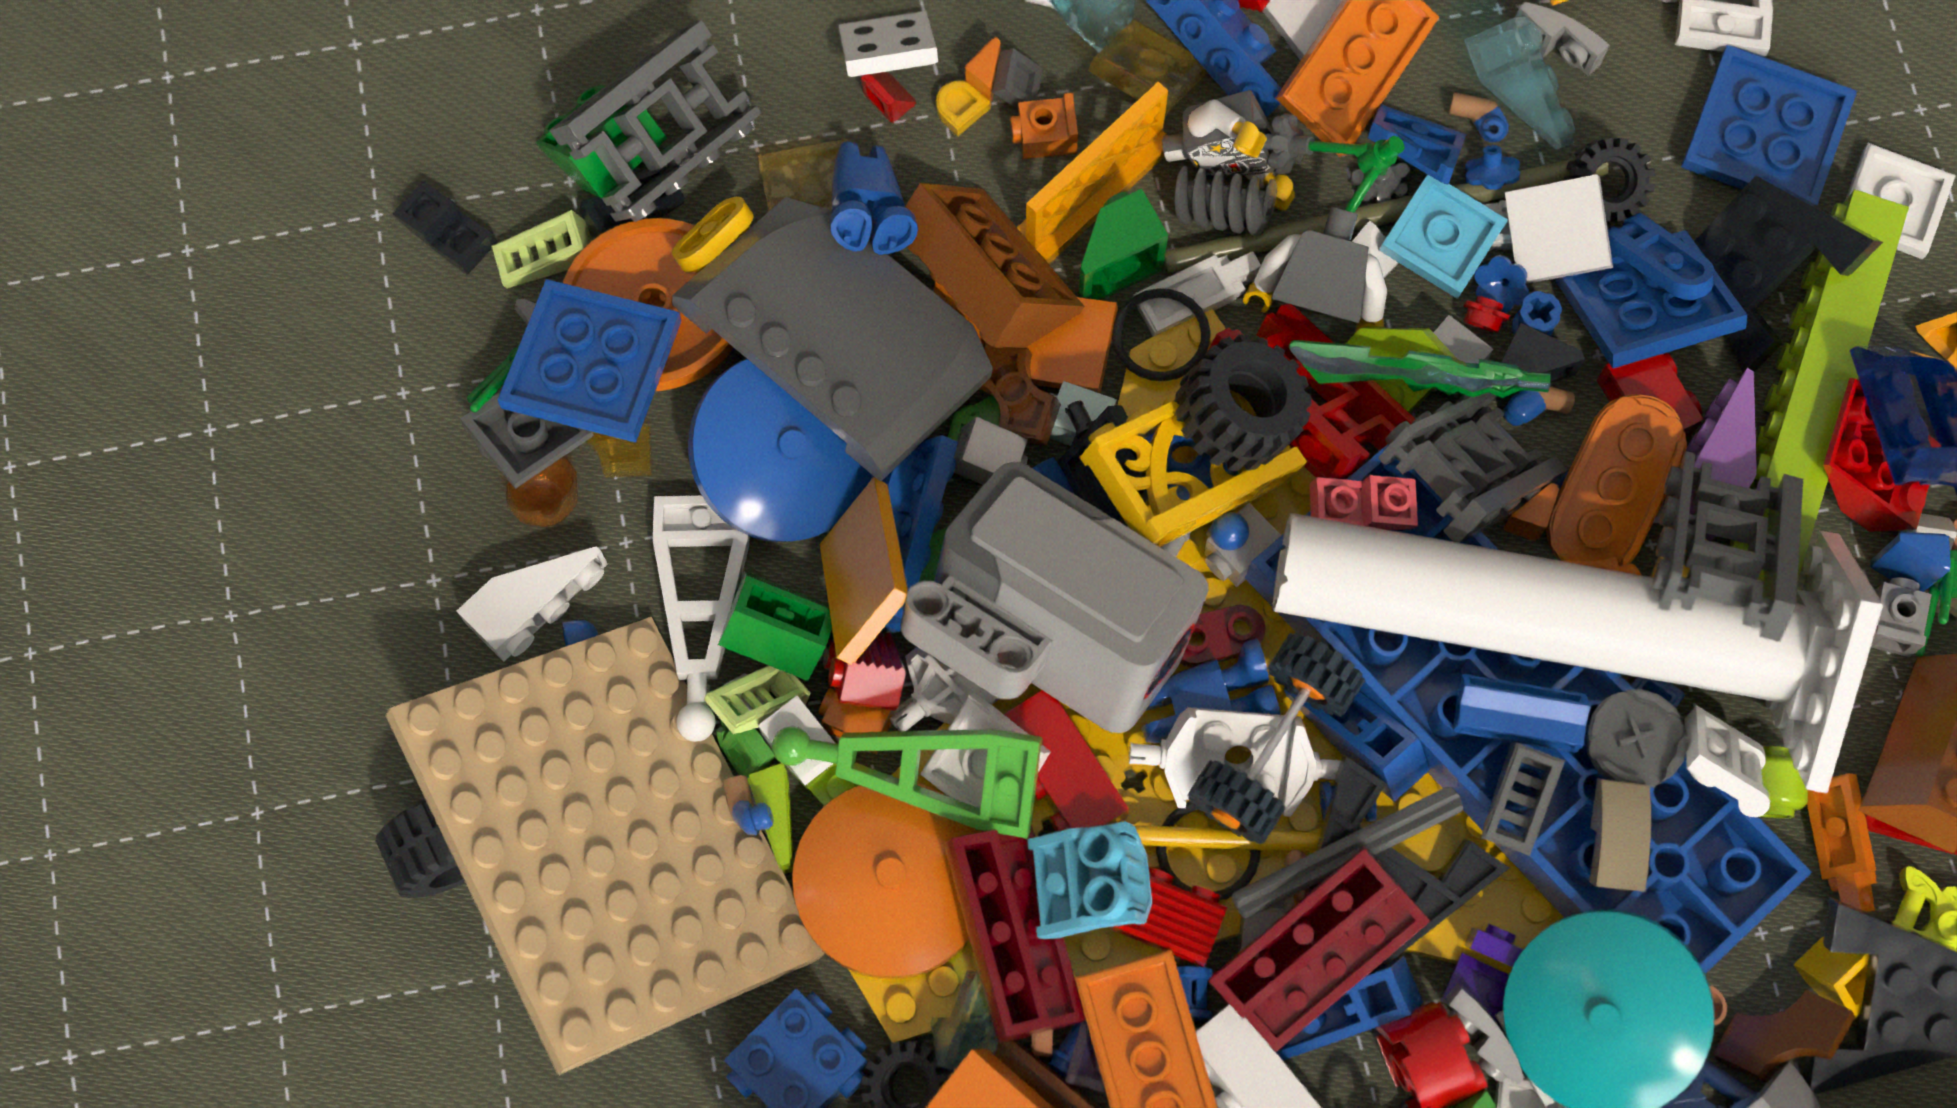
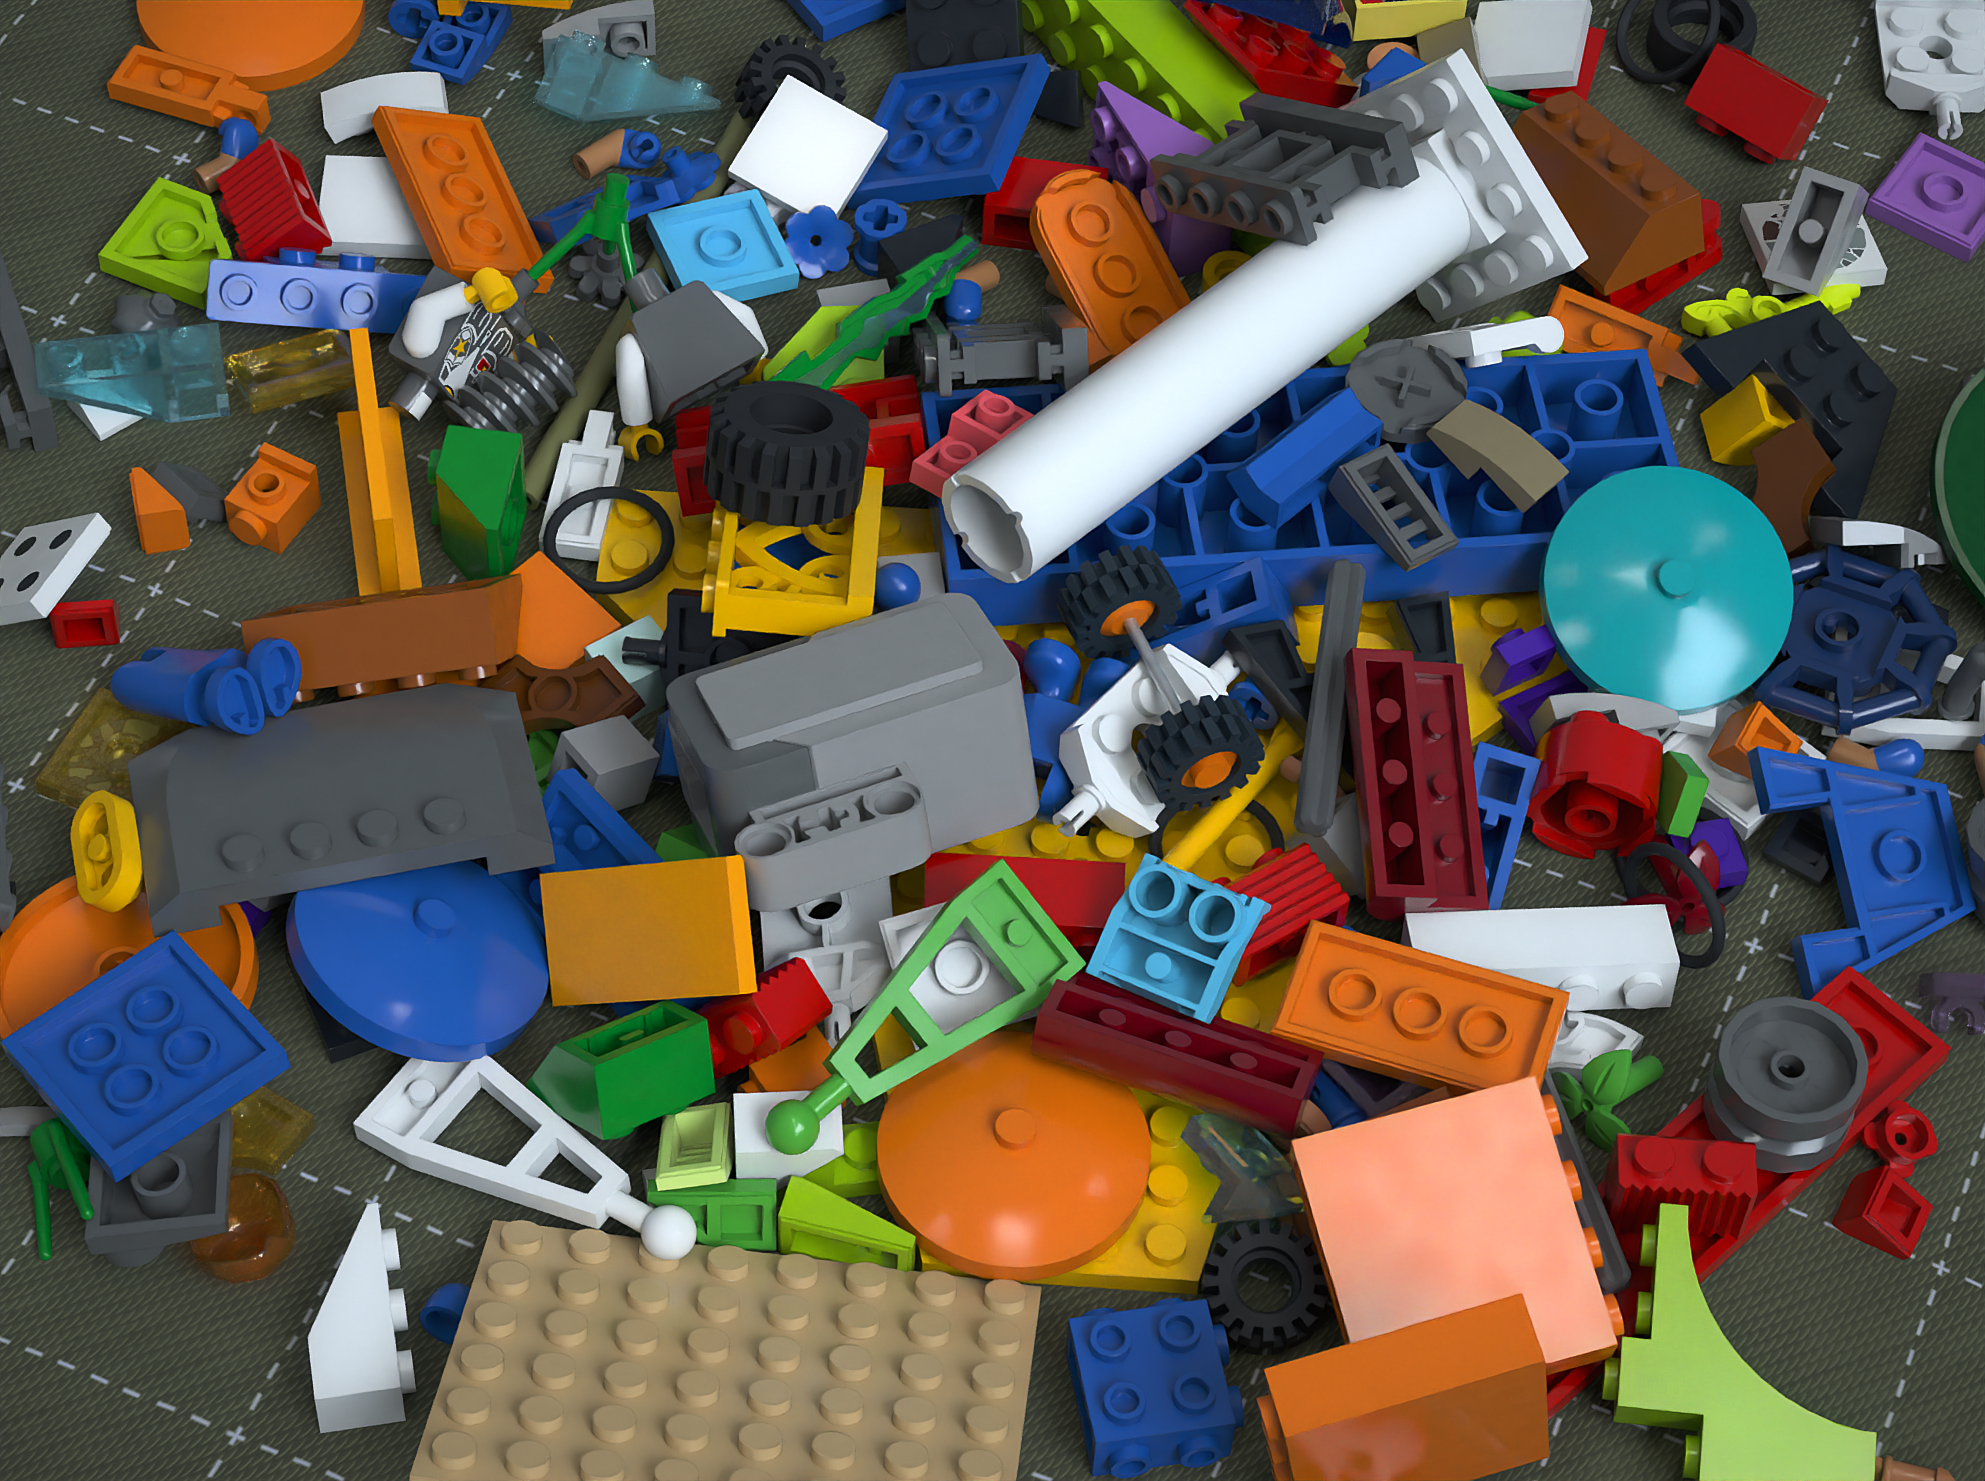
camera: 60 degrees left, 20 degrees down
(741, 807) = (822, 1243): blue arm -> none
(960, 105) = (164, 567): yellow tile -> none
(1485, 314) = (836, 270): red plate -> none
(1662, 257) = (920, 87): blue plate -> none

